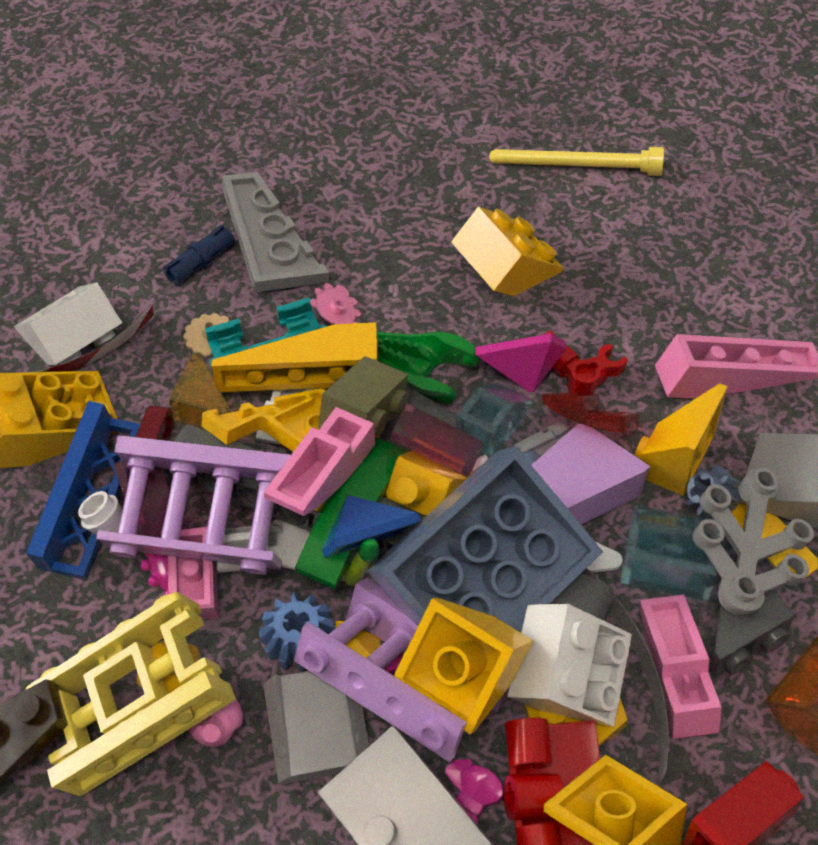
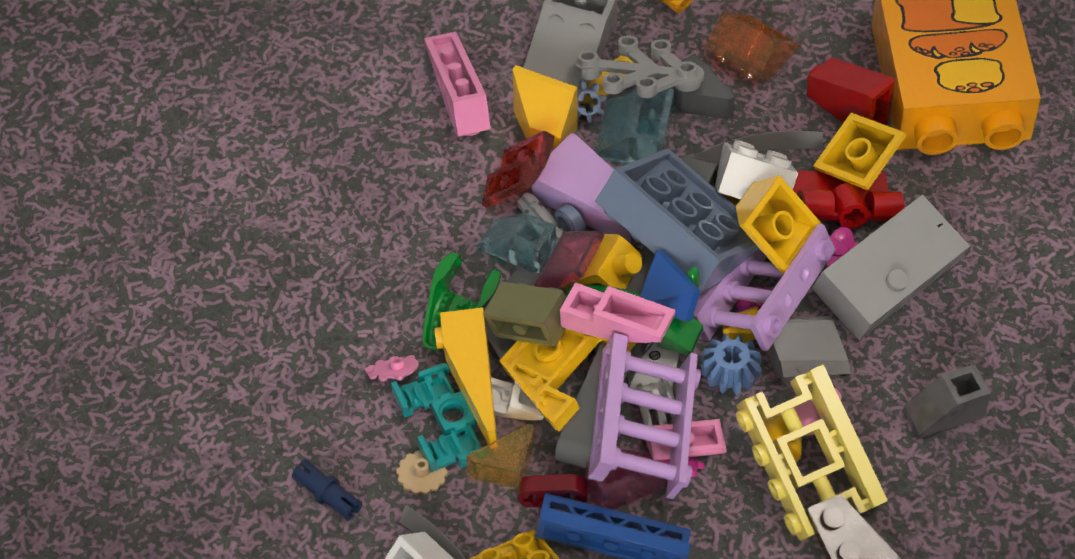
camera: 95 degrees left, 0 degrees up
(100, 513) = (637, 500): white cone -> none
(268, 238) = (317, 429): light grey wing -> none
(506, 251) = (333, 238): yellow slope -> none
(524, 359) = (458, 220): dark pink slope -> none
(587, 374) = (464, 188): red bar -> none
(648, 161) = (216, 135): light yellow piece -> none
(681, 666) = (726, 124): bright pink slope -> none

